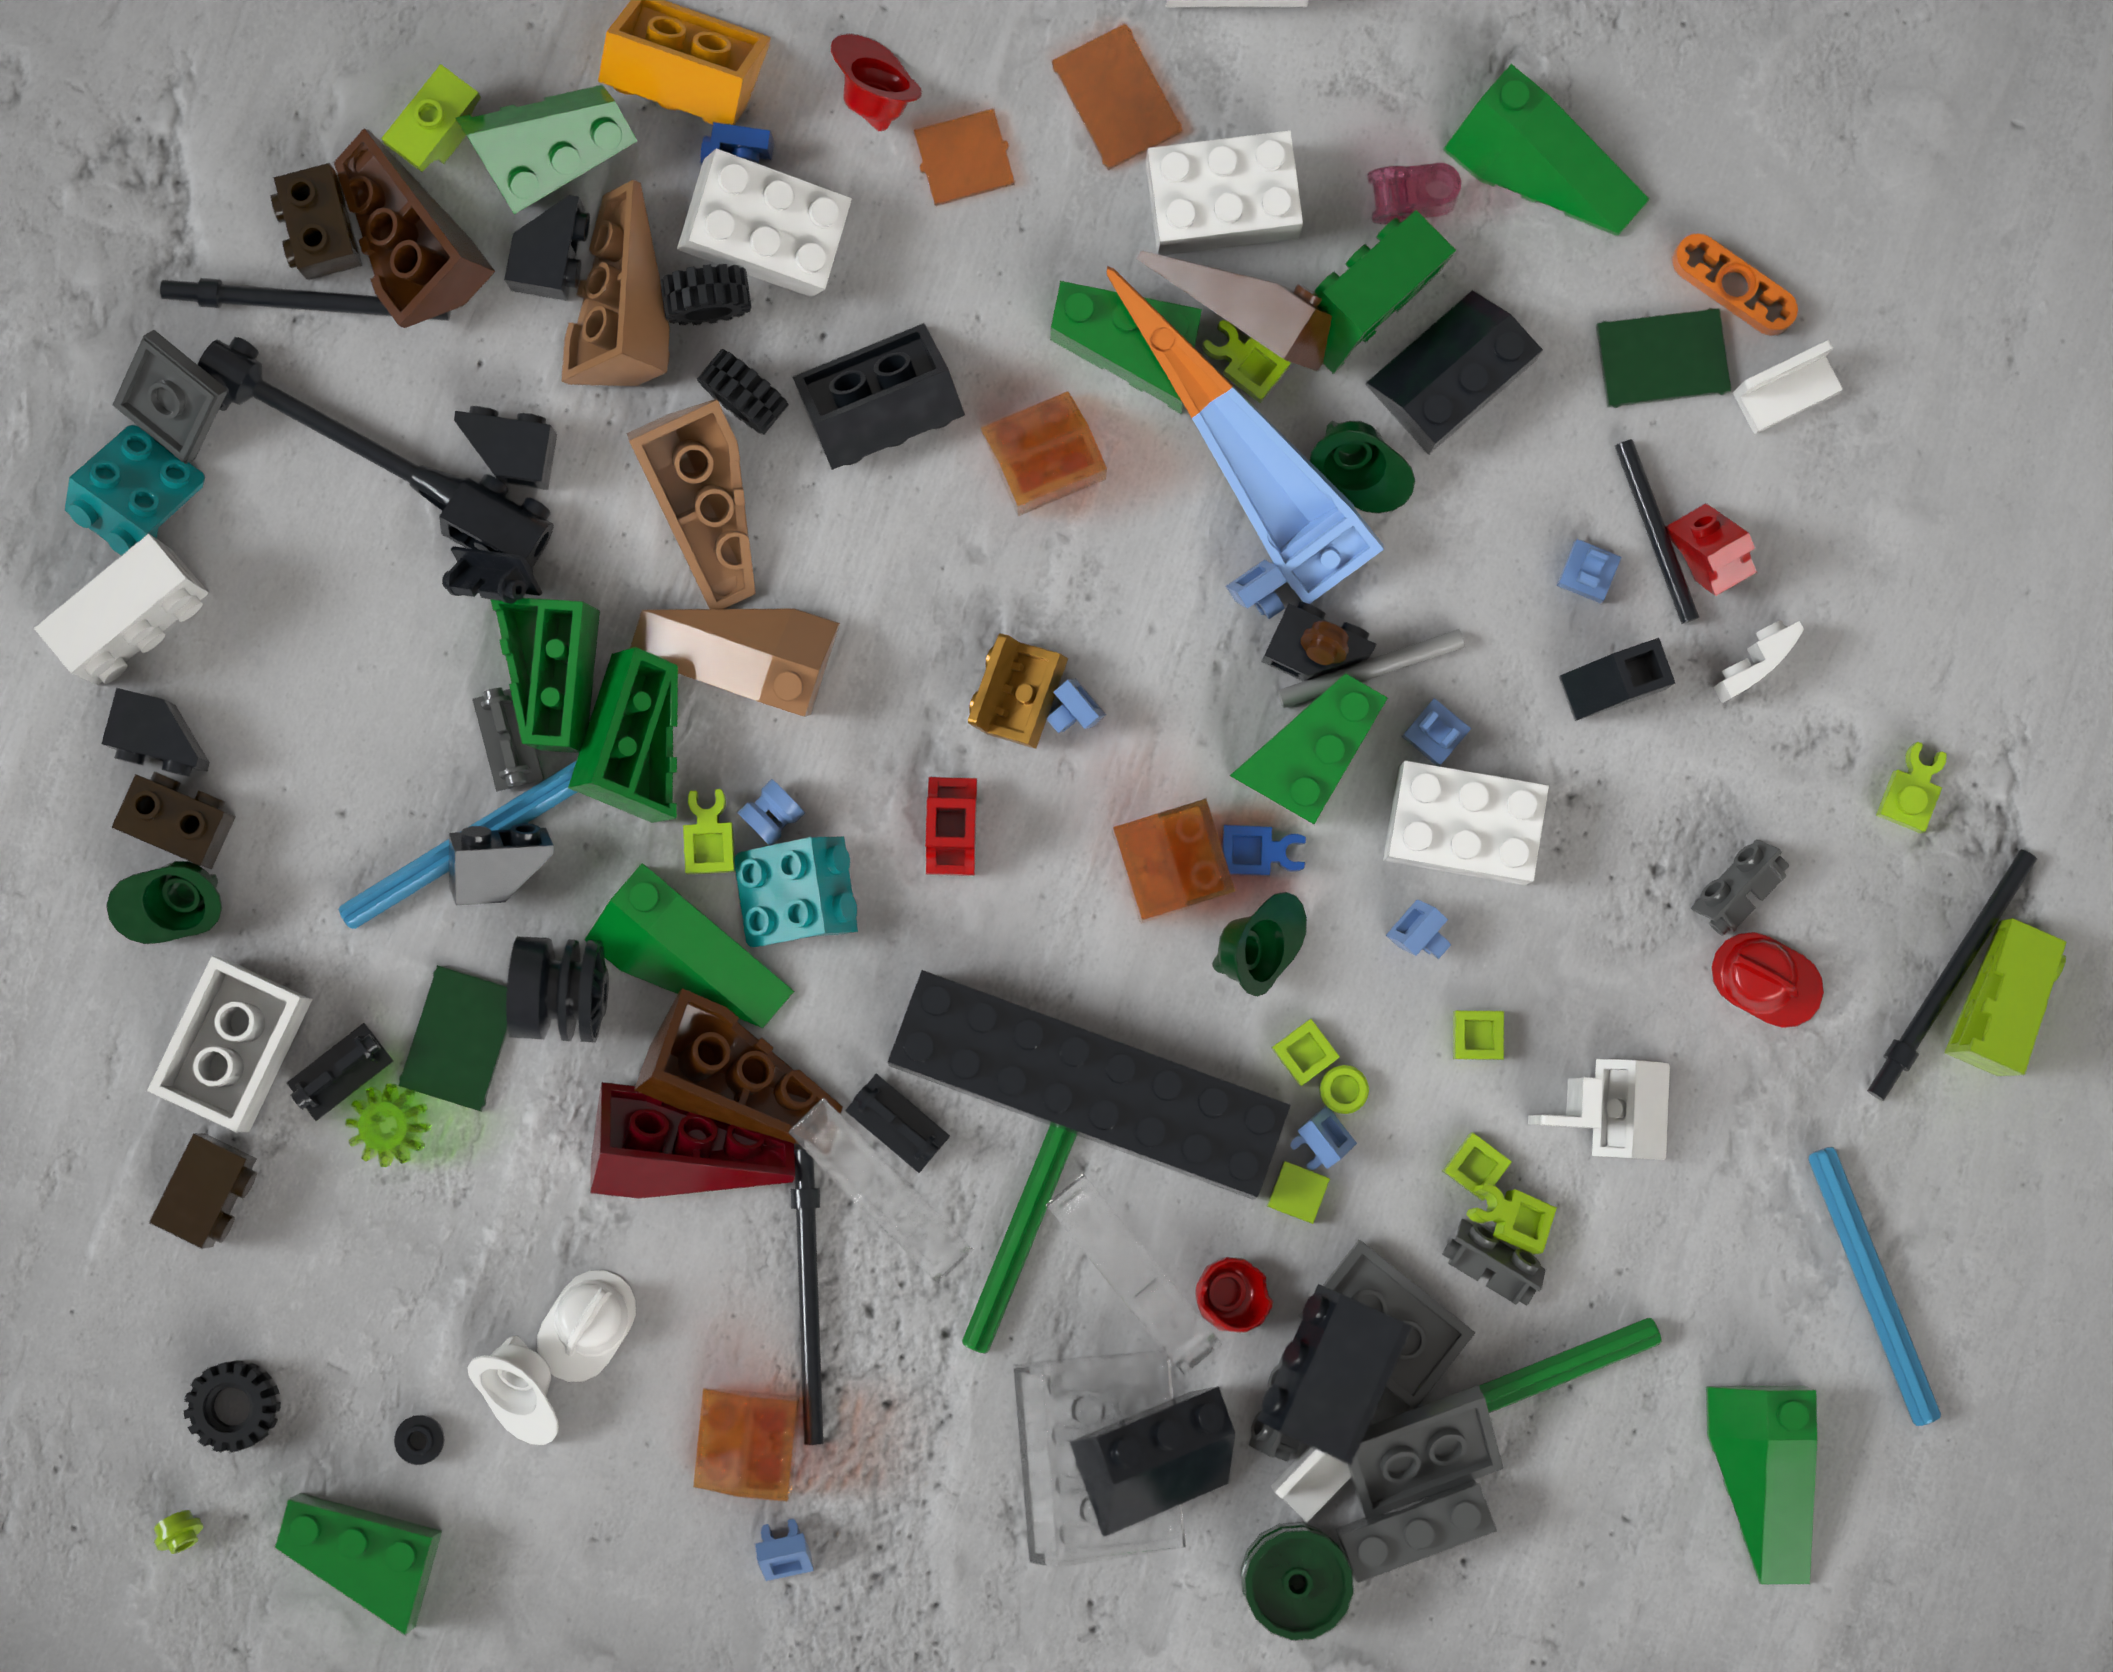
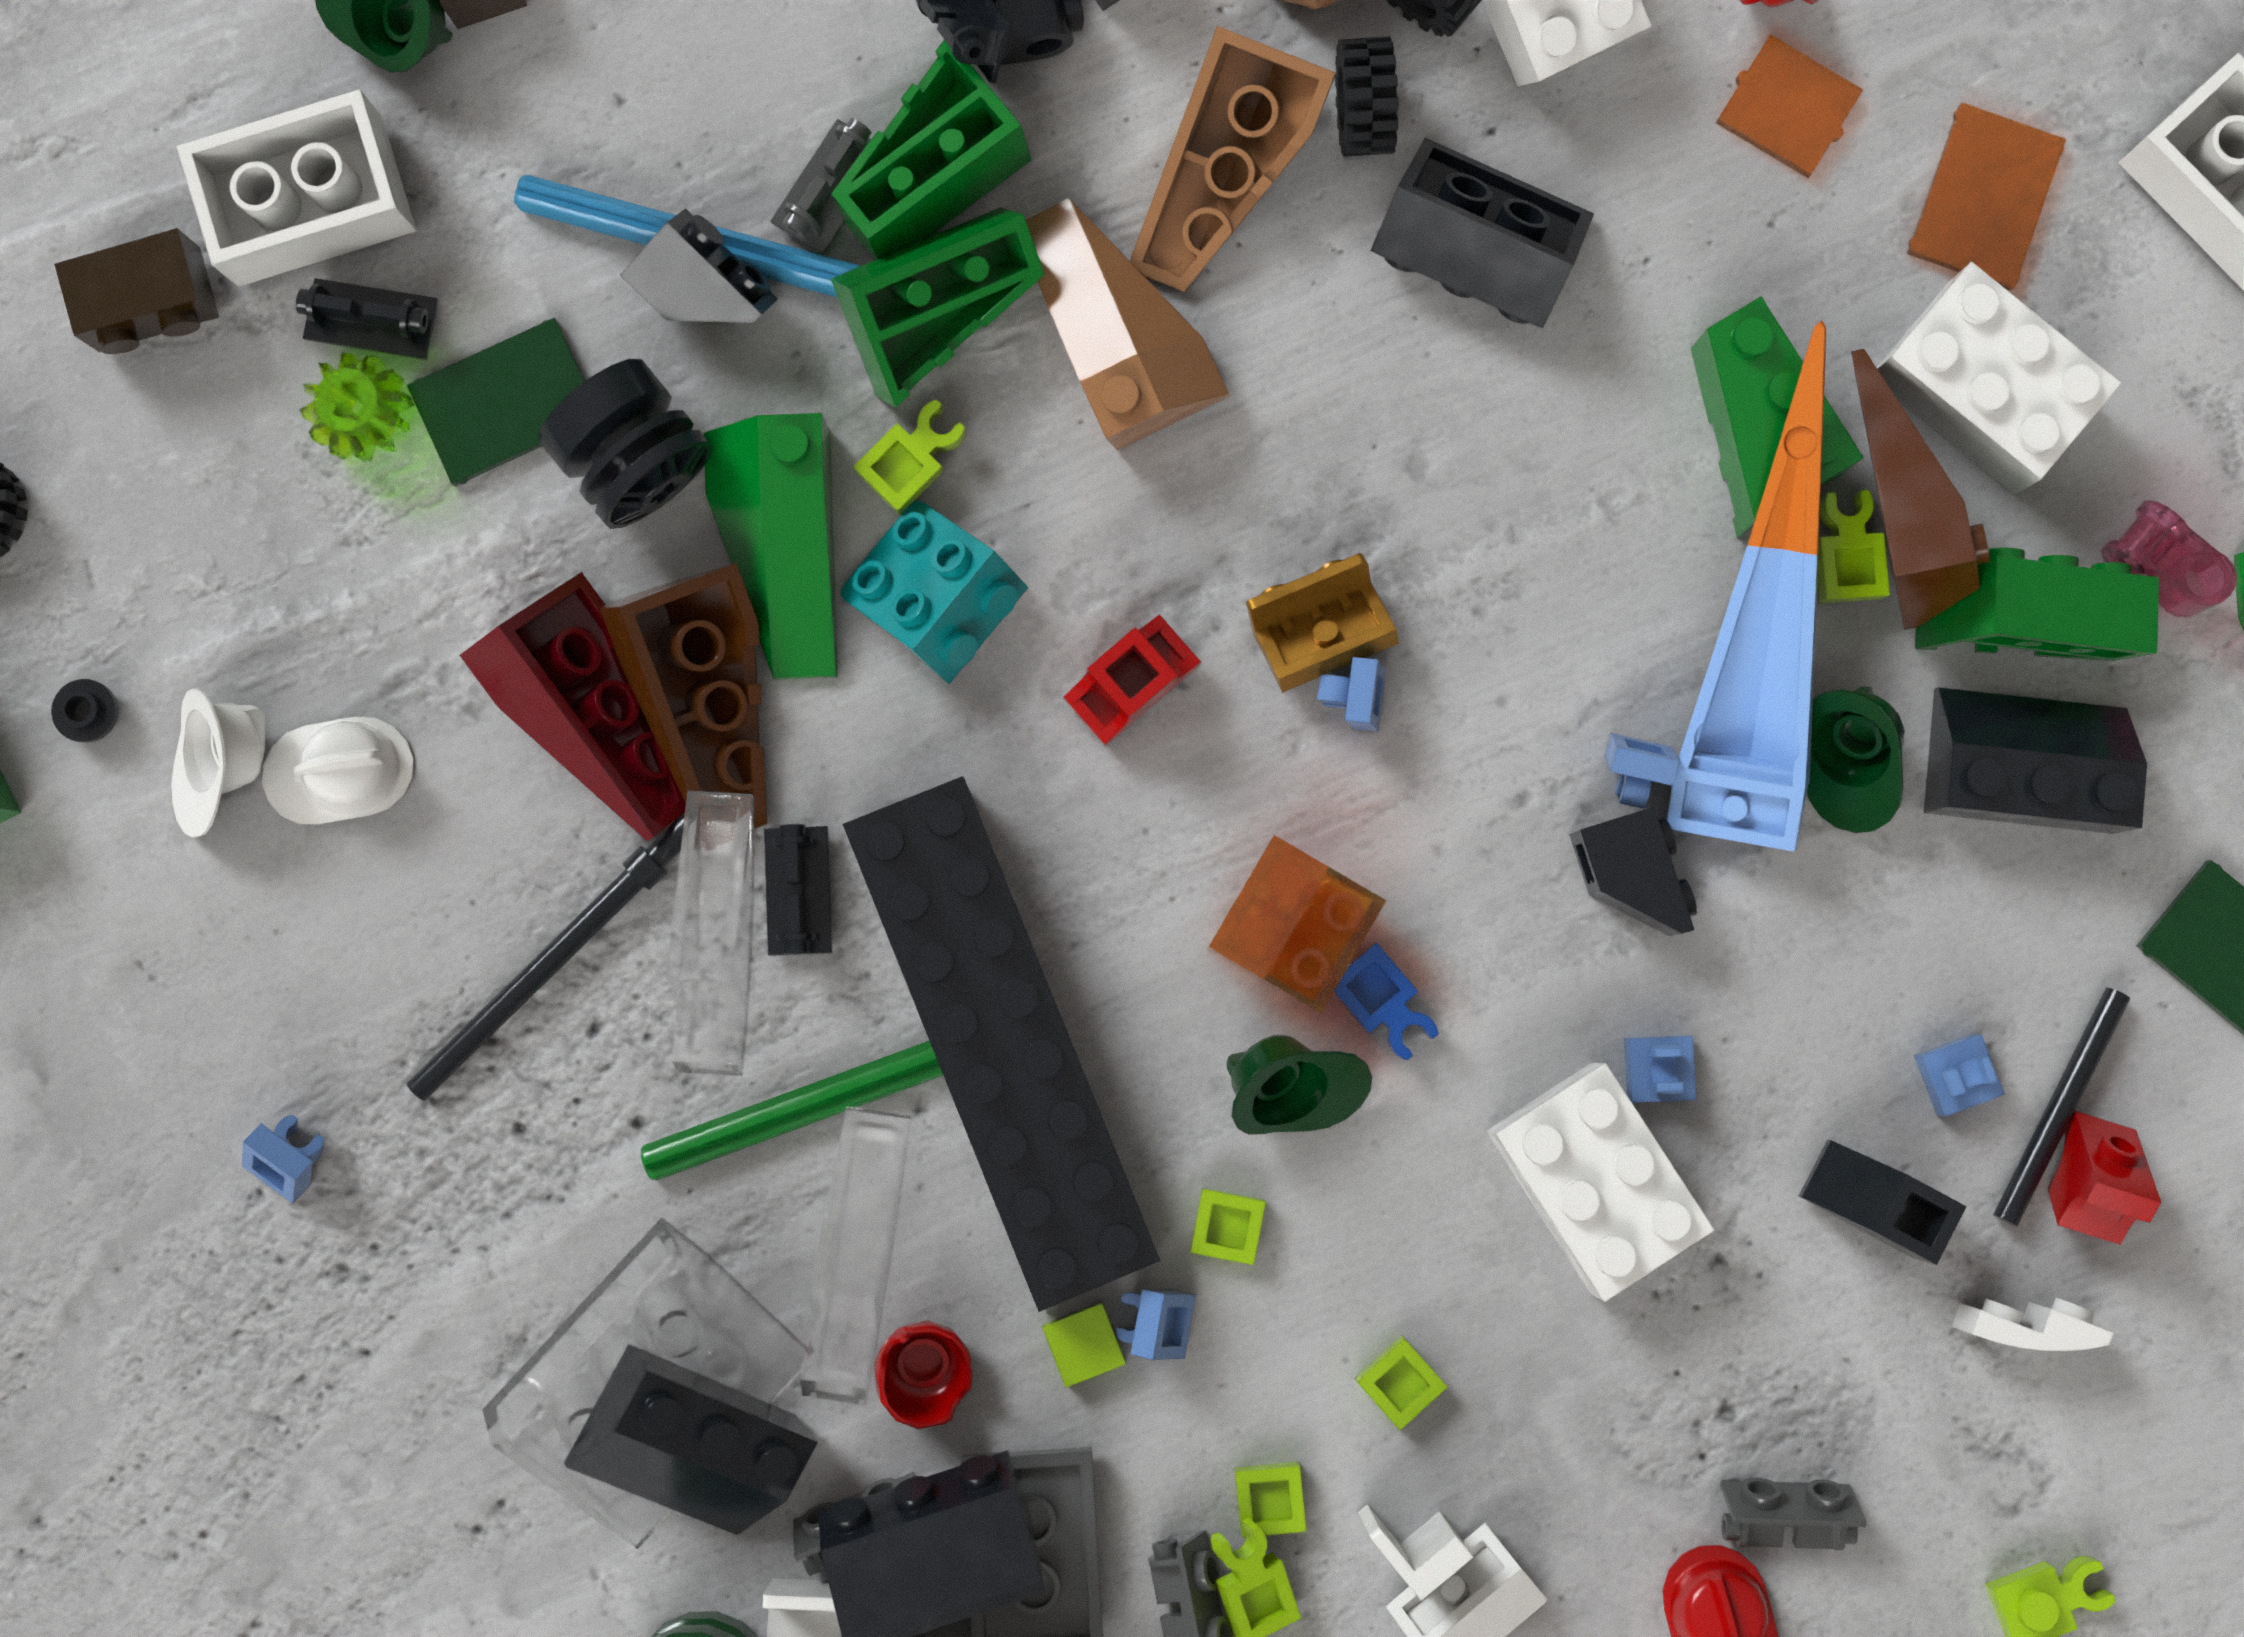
camera: 55 degrees right, 0 degrees up
(747, 1443) = (355, 1030): clear orange slope -> none
(779, 804) = (1001, 496): medium blue wheel -> none
(1044, 453) = (1577, 440): clear orange slope -> none
(1314, 749) = (1534, 963): green wedge -> none
(1325, 643) = (1649, 878): reddish brown plate -> none
(1344, 1089) = (1226, 1297): lime tile -> none
(1374, 667) = (1663, 948): light grey bar -> none
(1419, 930) = (1450, 1231): medium blue tile -> none

